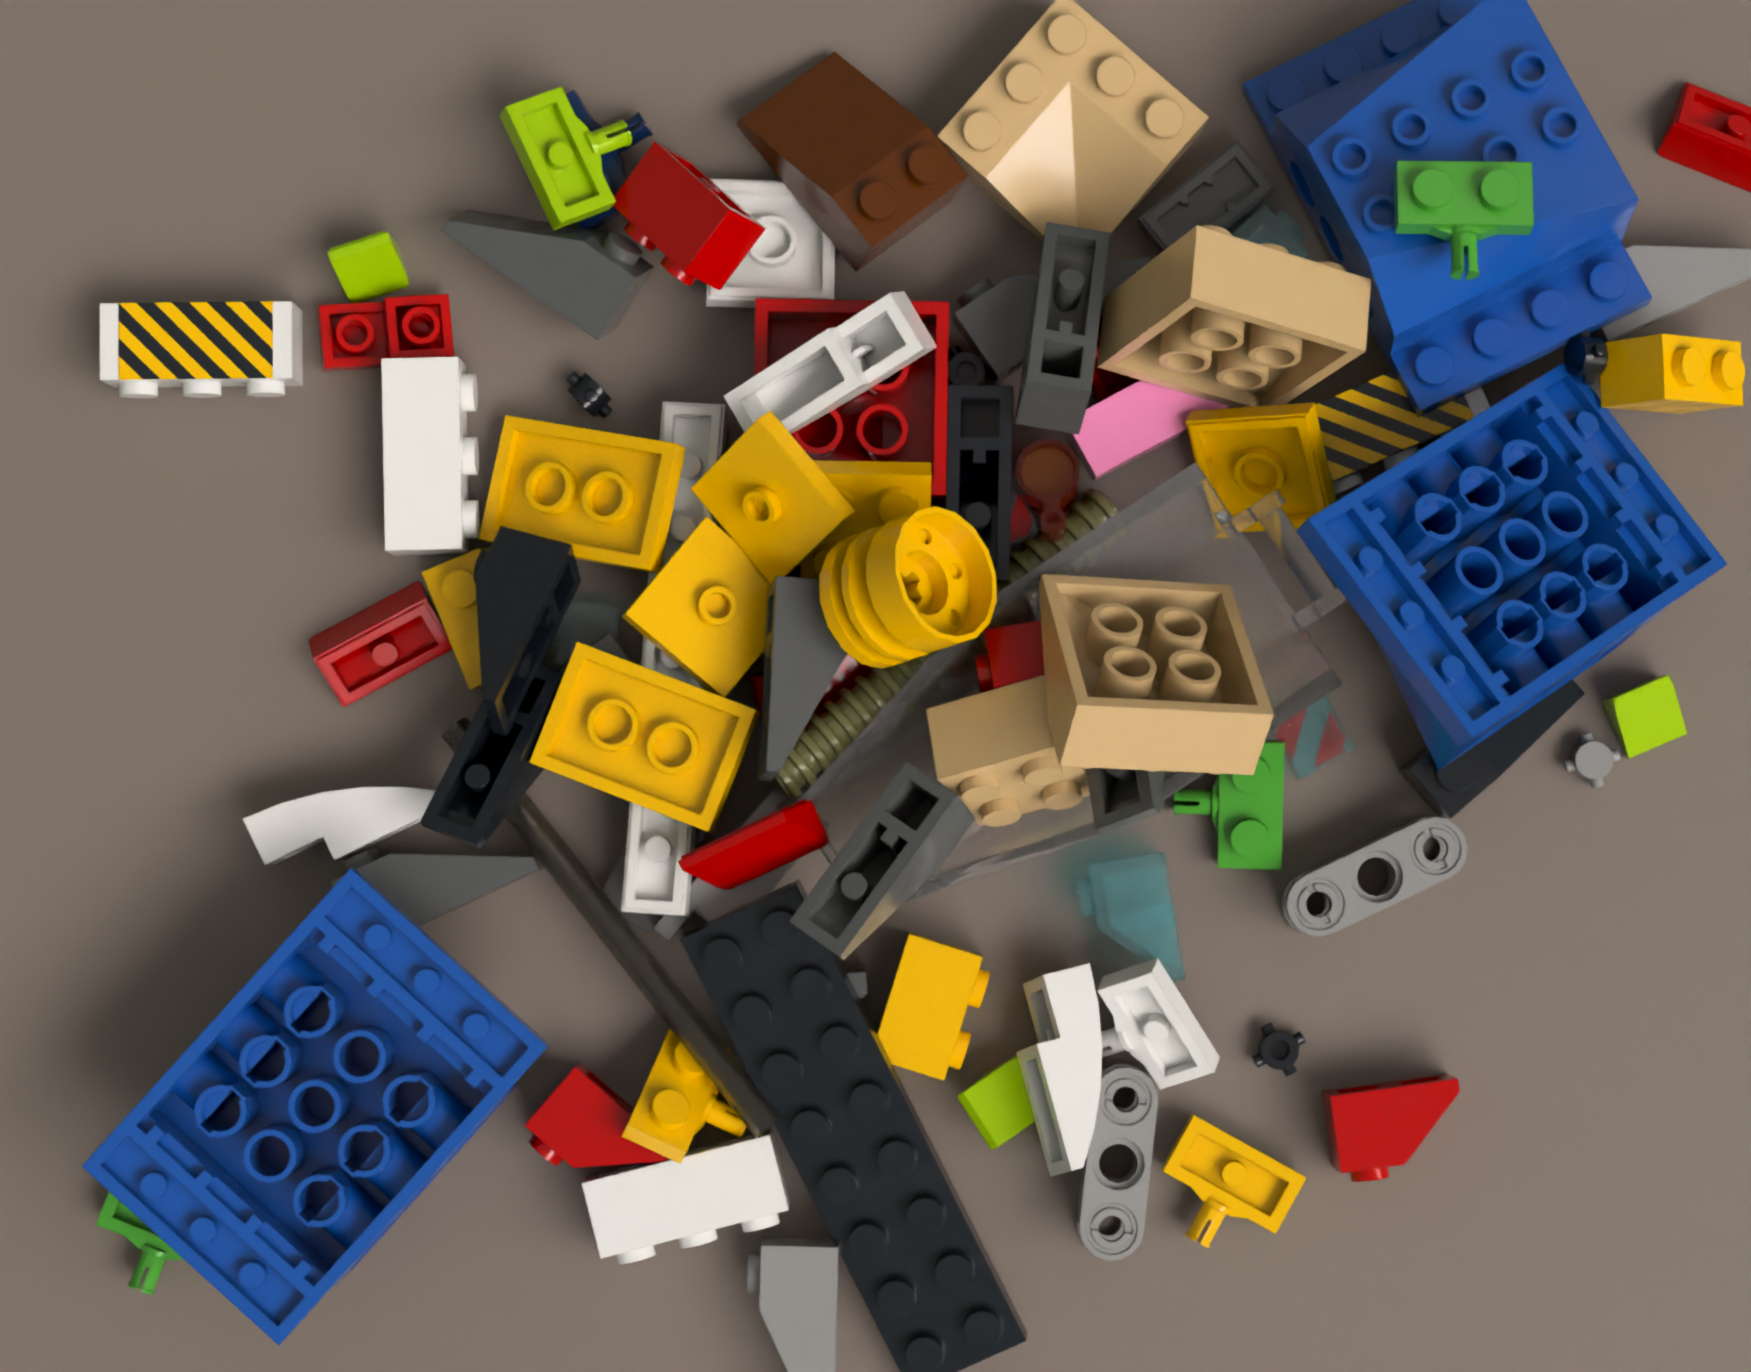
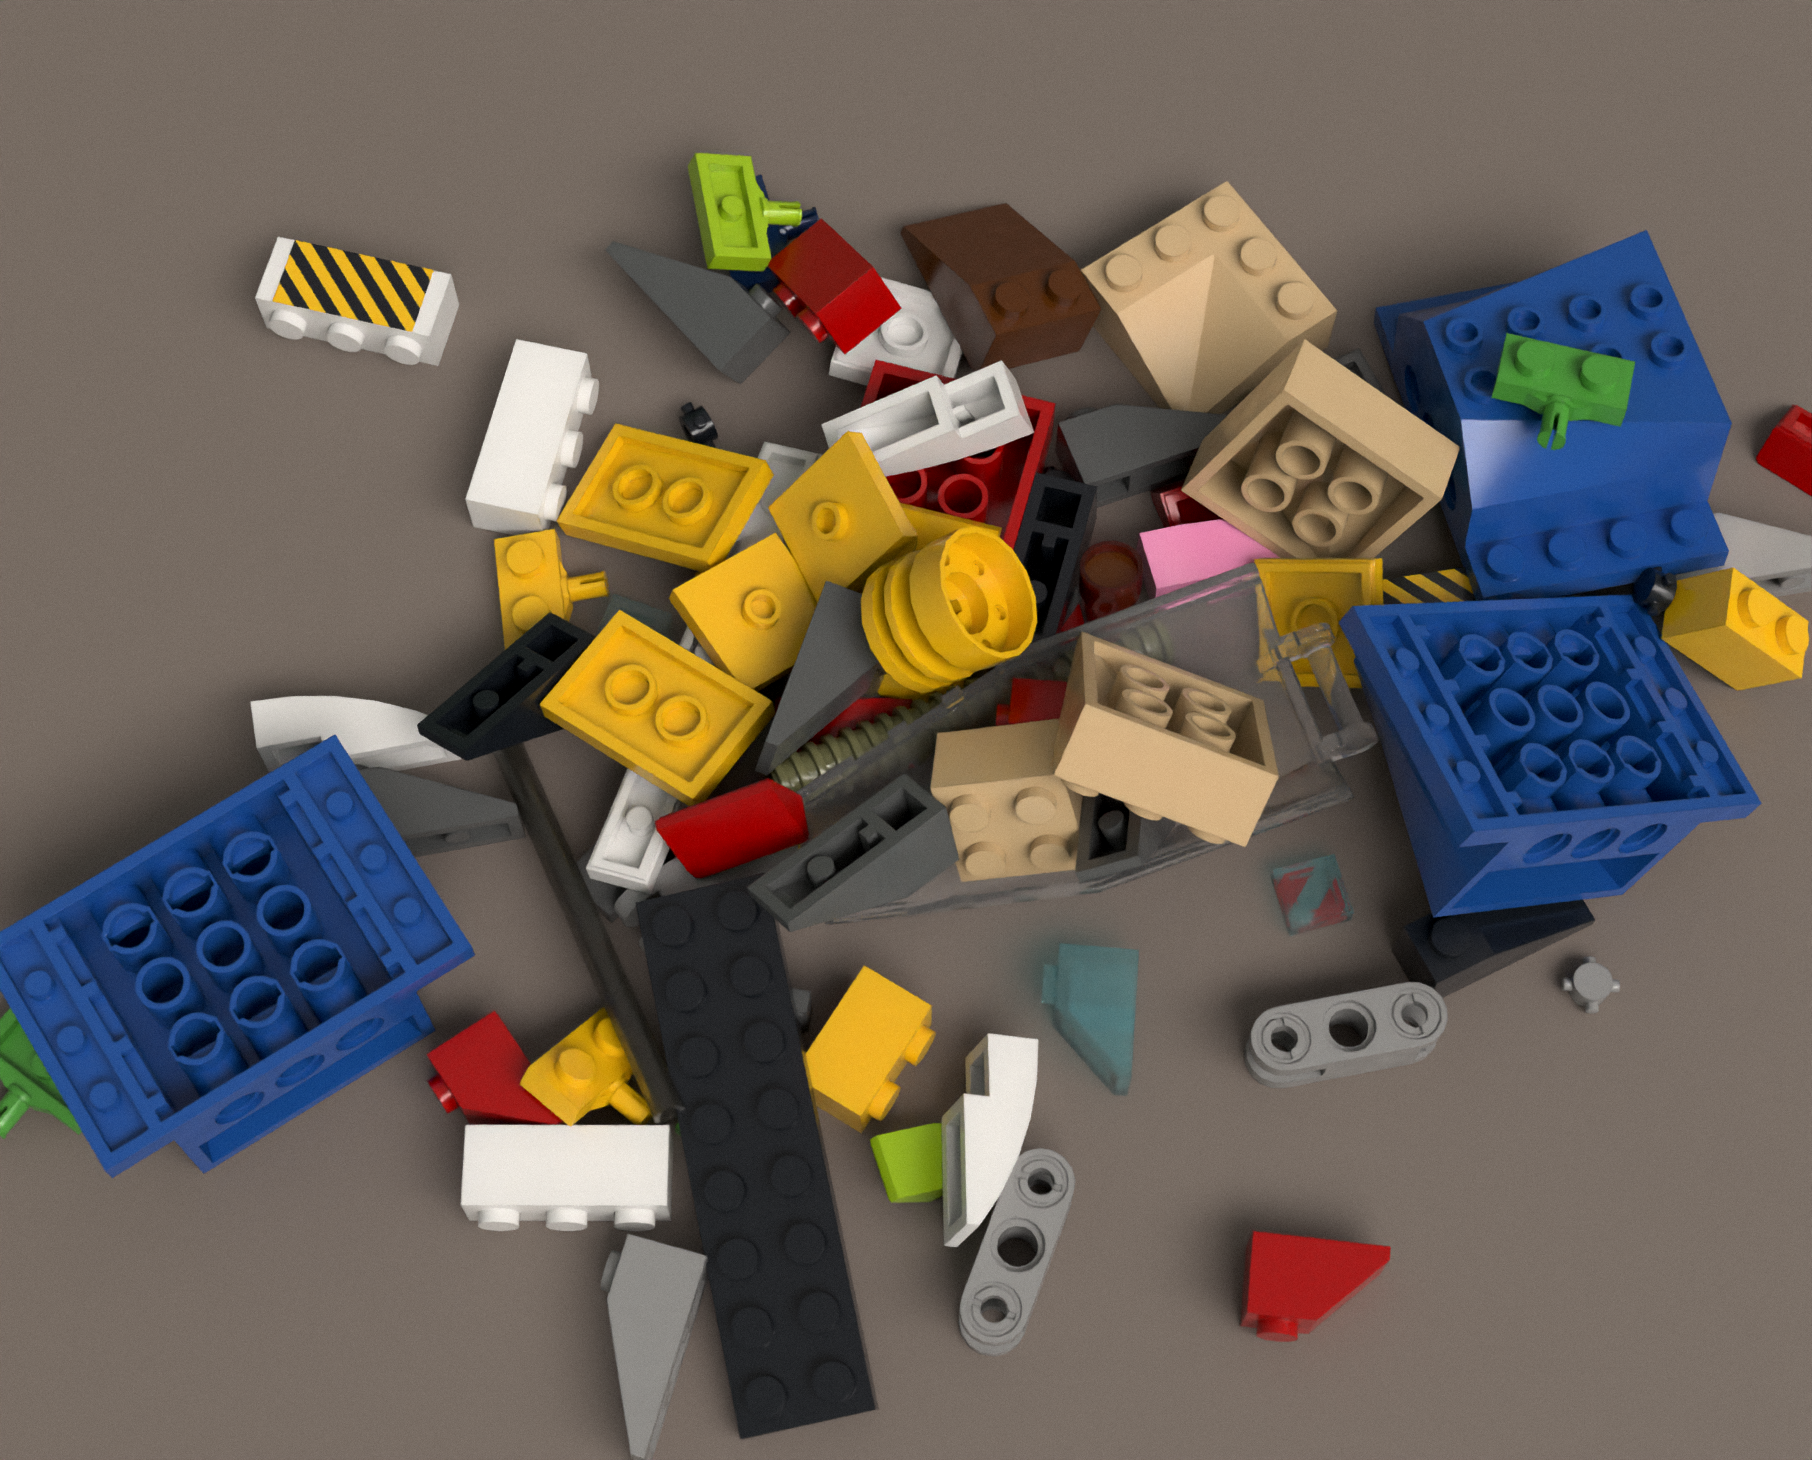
camera: 10 degrees right, 20 degrees down
(369, 267) = (531, 273): lime slope -> none
(380, 644) = (435, 598): red slope -> none
(398, 327) = (498, 324): red slope -> none
(521, 600) = (573, 573): black slope -> none
(1063, 329) = (1154, 451): dark grey slope -> none
(1155, 1025) = (1089, 1122): white plate -> none
(1230, 1179) = (1130, 1302): yellow plate -> none
(1245, 811) = (1230, 937): bright green plate -> none
(1278, 1049) = (1210, 1188): black piece -> none
(1646, 715) = (1653, 952): lime slope -> none

